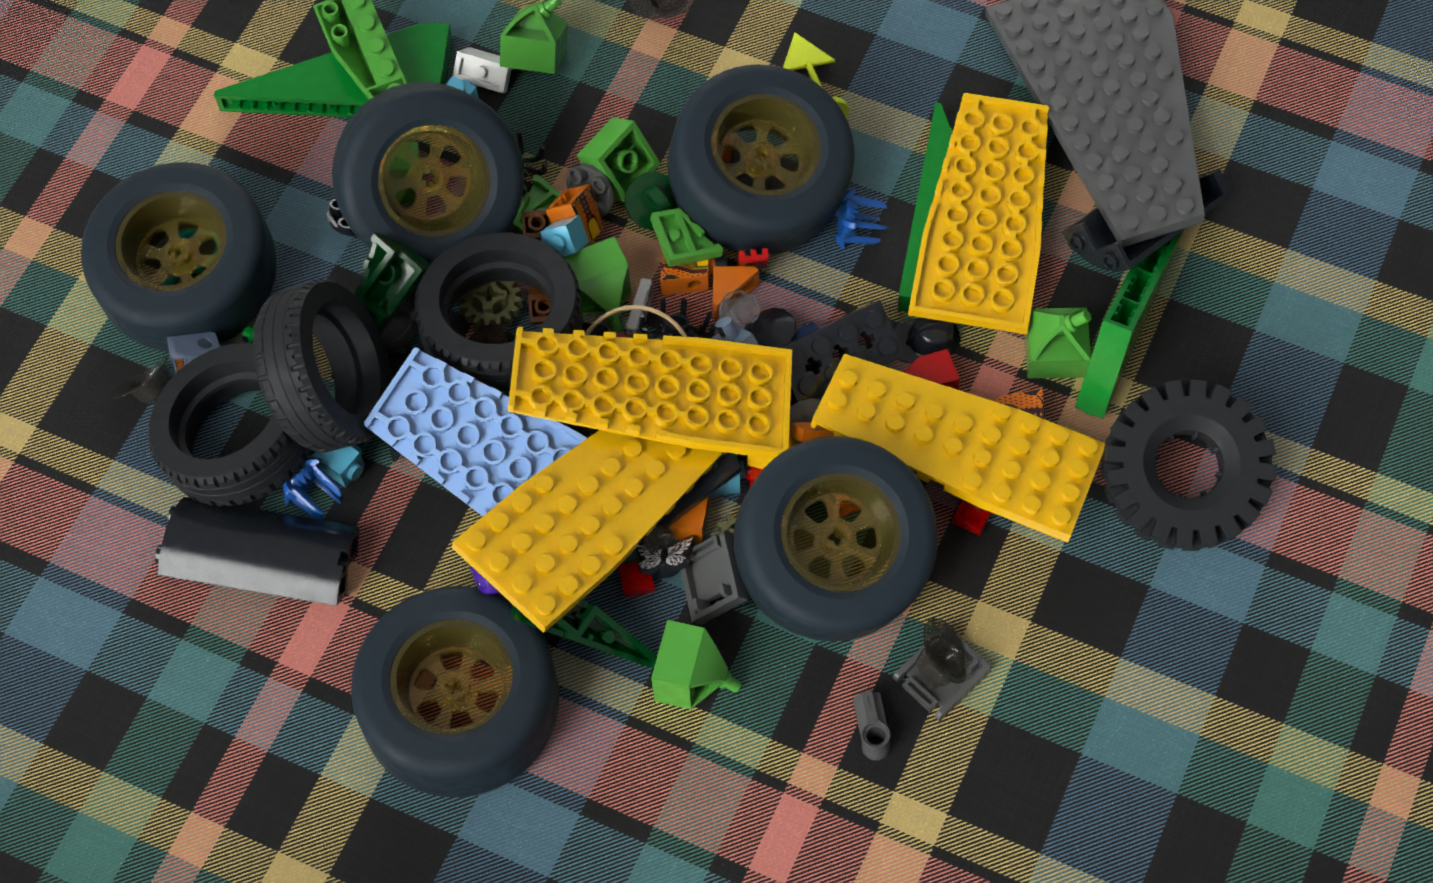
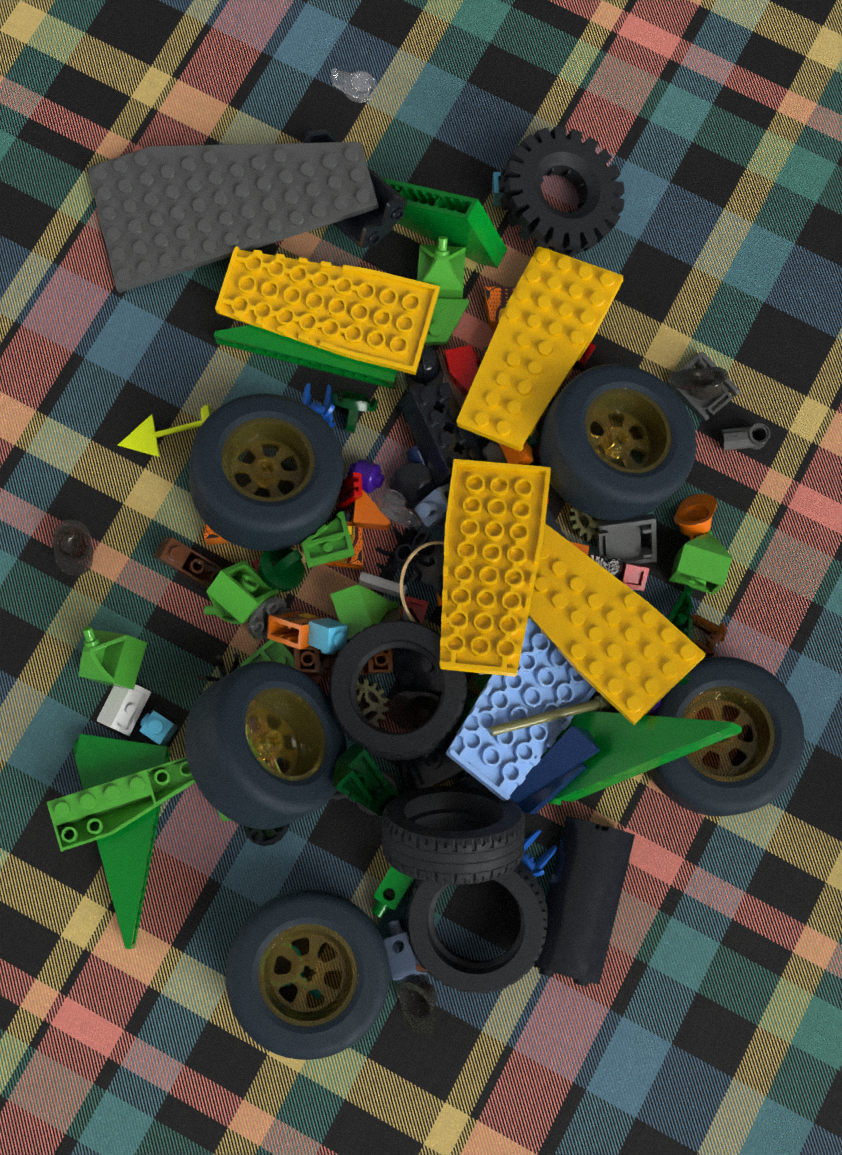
camera: 90 degrees left, 15 degrees up
(407, 491) = (555, 770): none -> dark blue wedge
(419, 542) = (636, 748): none -> green slope
(463, 454) = (598, 703): none -> olive bar
(594, 690) = (716, 633): none -> reddish brown piece
(657, 106) = (187, 561): none -> reddish brown slope
(669, 593) = (634, 576): none -> plate
(754, 661) = (695, 515): none -> orange piece
(776, 280) = (370, 473): none -> dark purple head
(863, 256) = (354, 403): none -> dark green tile
(996, 353) = (445, 320): none -> bright green wing
(1308, 229) = (354, 85): none -> clear piece

